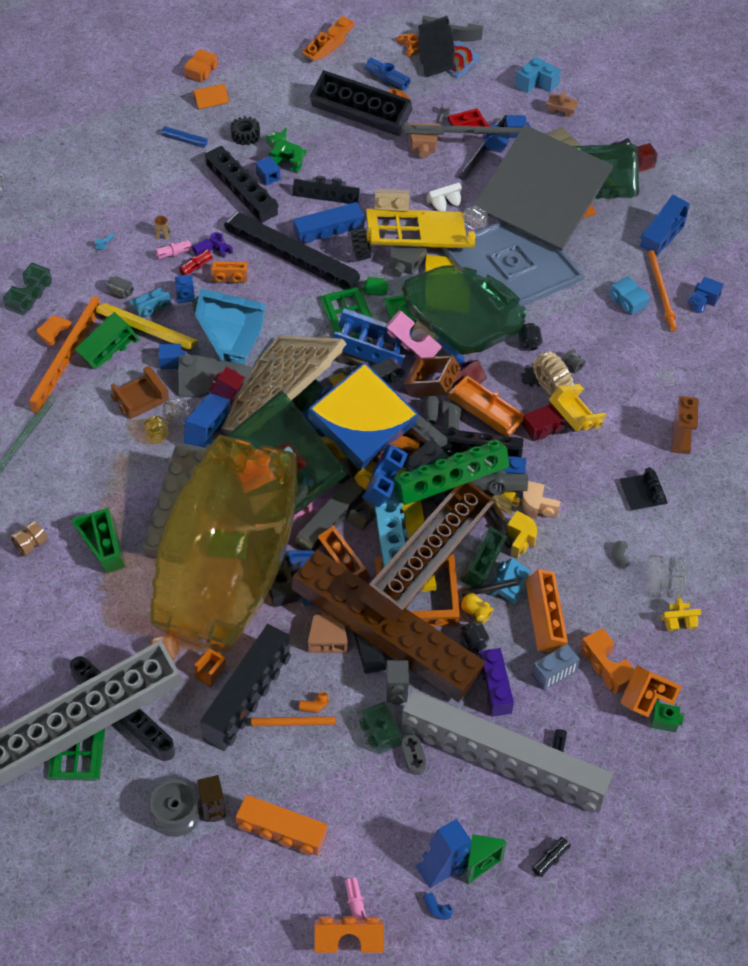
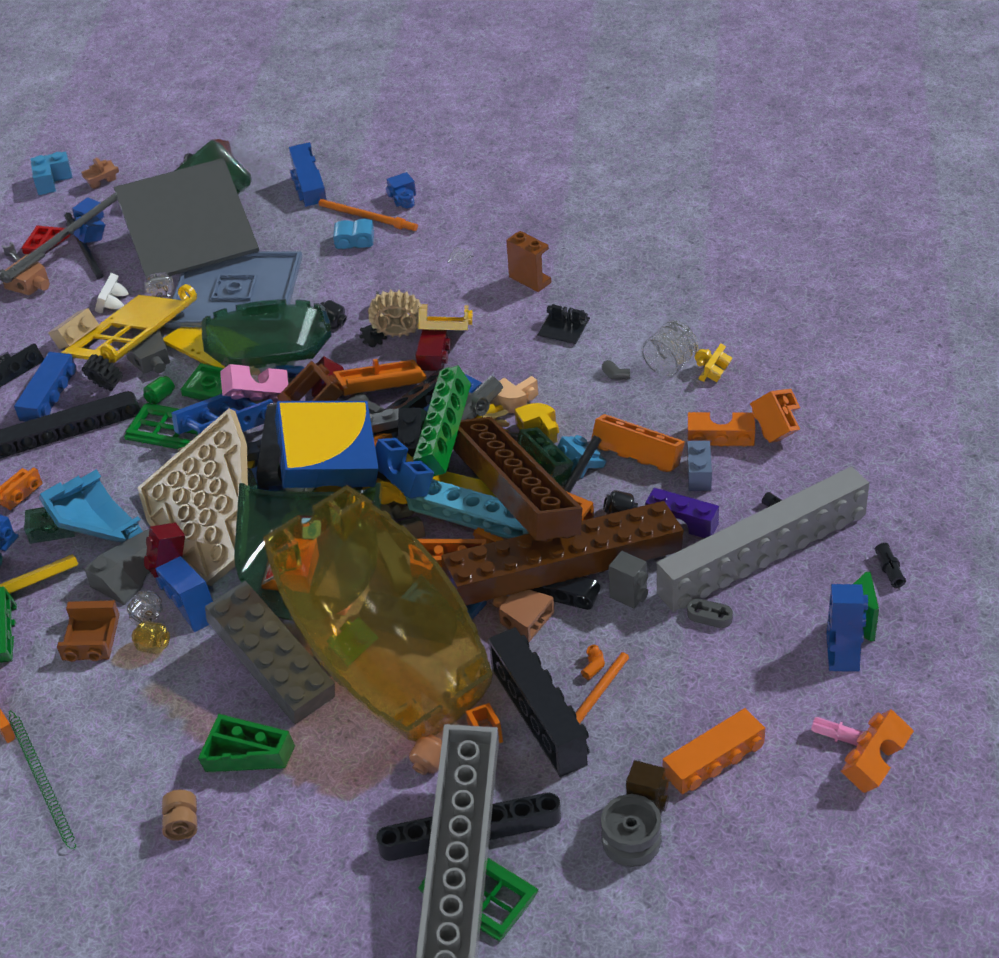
camera: 50 degrees left, 10 degrees down
(169, 355) = (70, 583): blue brick -> none
(381, 728) = (664, 621): clear green brick -> none
(439, 911) = (889, 674): blue arm -> none
(476, 607) = (591, 489): yellow animal -> none
(666, 717) = (810, 419): green brick -> none

